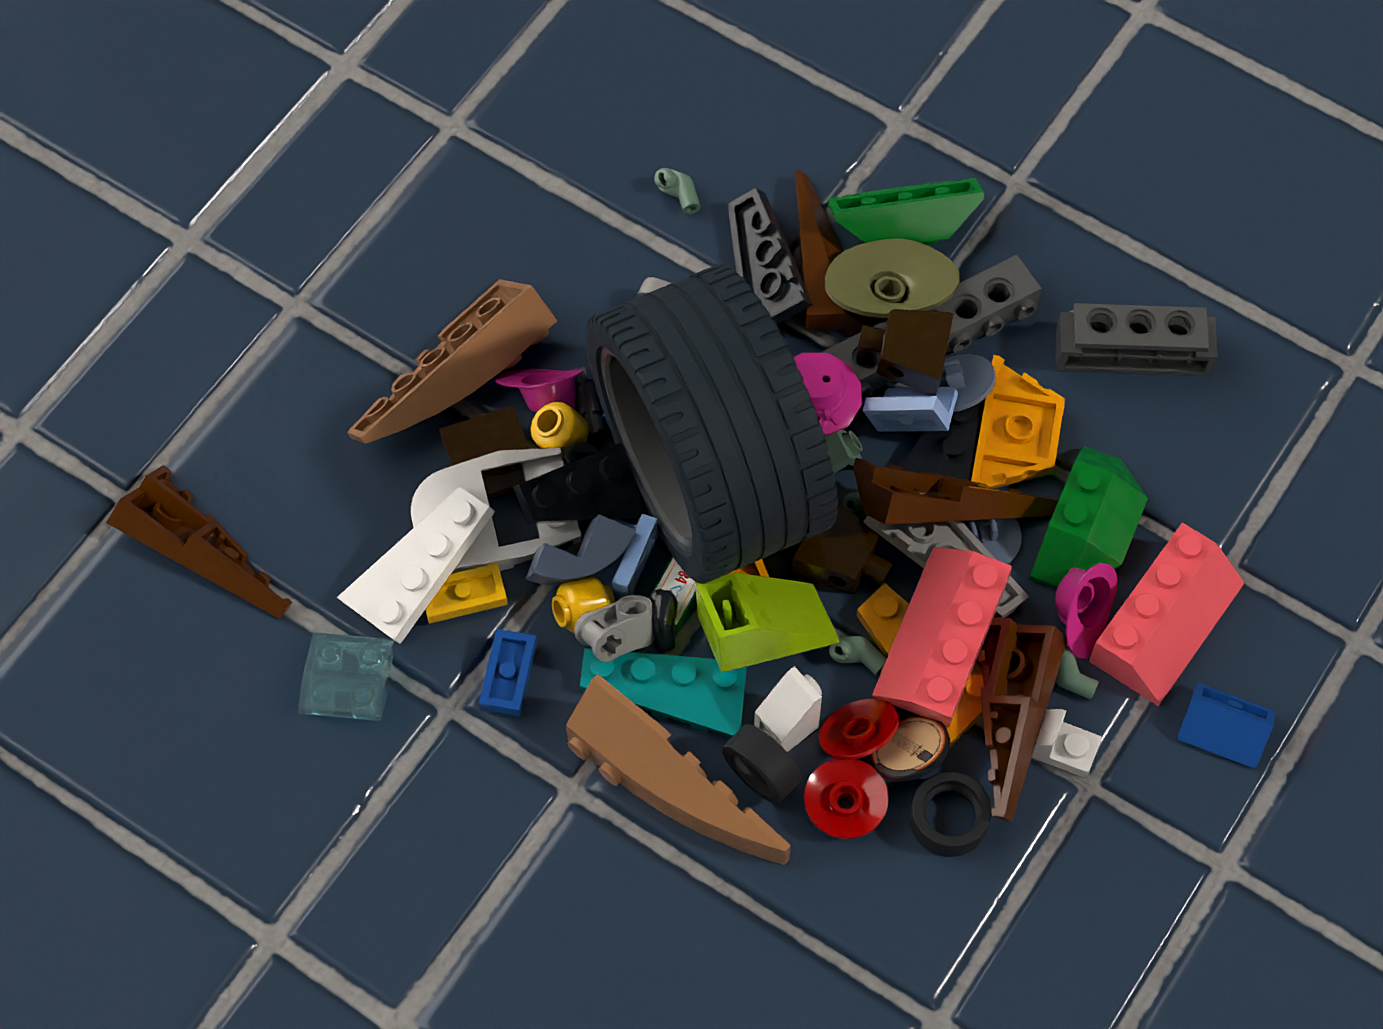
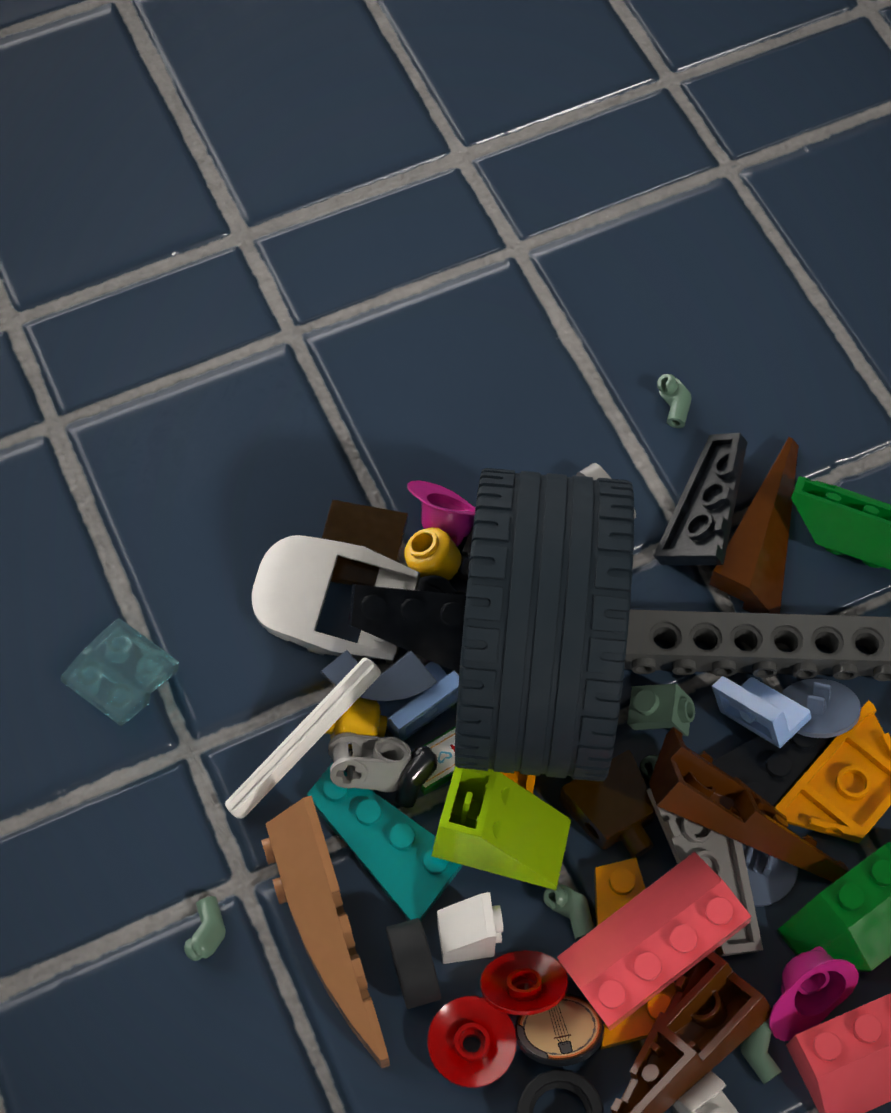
camera: 30 degrees right, 0 degrees up
(174, 527) = (73, 468): reddish brown wedge -> none
(413, 570) = (231, 610): white wing -> none
(468, 593) = (263, 654): yellow plate -> none
(471, 352) = (411, 448): medium nougat wedge -> none
(508, 672) = (252, 744): blue plate -> none
(551, 639) = (303, 738): none -> white axle
(572, 842) = (210, 932): none -> sand green arm
(833, 400) = (664, 657): dark pink hat -> none
(890, 276) = (812, 579): olive hat -> none
(911, 347) = (789, 651): dark brown torso -> none

